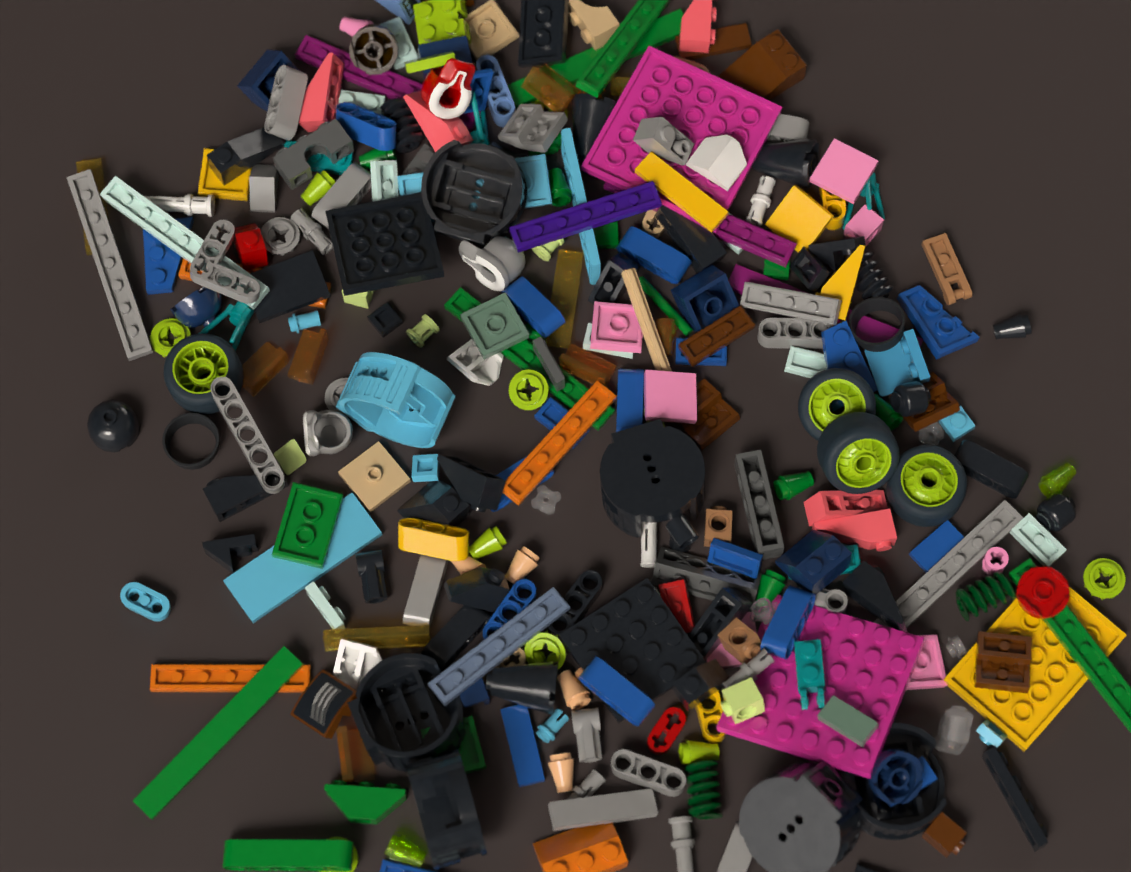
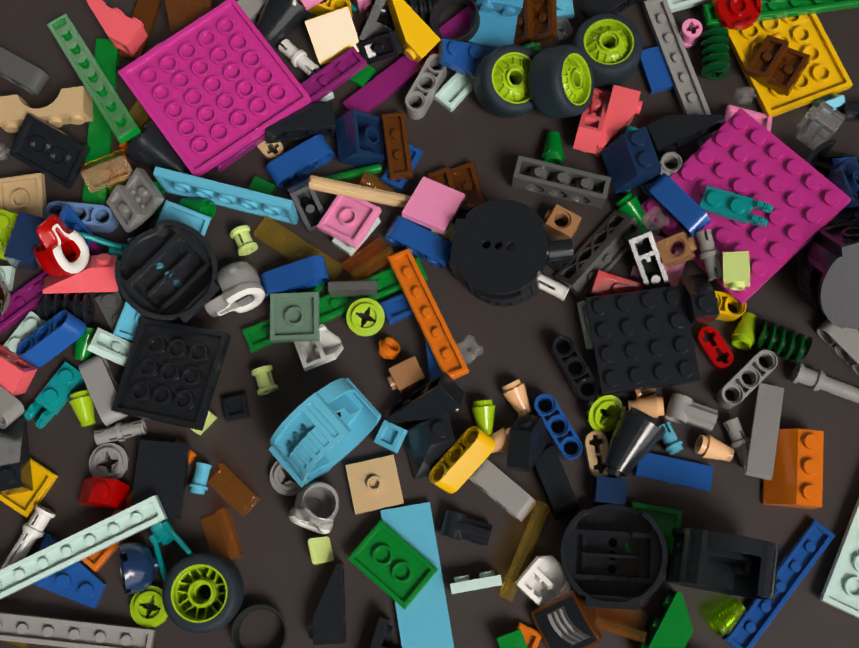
camera: 60 degrees left, 5 degrees up
(215, 271) = (113, 537): light grey beam -> none
(243, 423) = (300, 573): light grey beam -> none
(263, 188) = (55, 455): light grey slope -> none
(328, 140) = (45, 376): dark grey arch -> none
(428, 62) = (26, 252): lime tile -> none
(490, 454) = (406, 375): none -> medium nougat brick
(499, 646) = (587, 449): sand blue tile -> none
(509, 426) = (389, 348): none -> orange plate
(585, 216) = (243, 192): dark purple tile -> none
(616, 691) = (680, 368): blue beam -> none
(663, 140) = (210, 98): light grey slope -> none
(681, 192) = (263, 107): yellow tile -> none
(719, 160) = (252, 65): white slope -> none
(735, 558) = (597, 222): blue tile -> none
(790, 303) = (403, 73): light grey tile -> none
(847, 721) = (796, 194): sand green tile -> none
(910, 399) = (532, 24): black head -> none

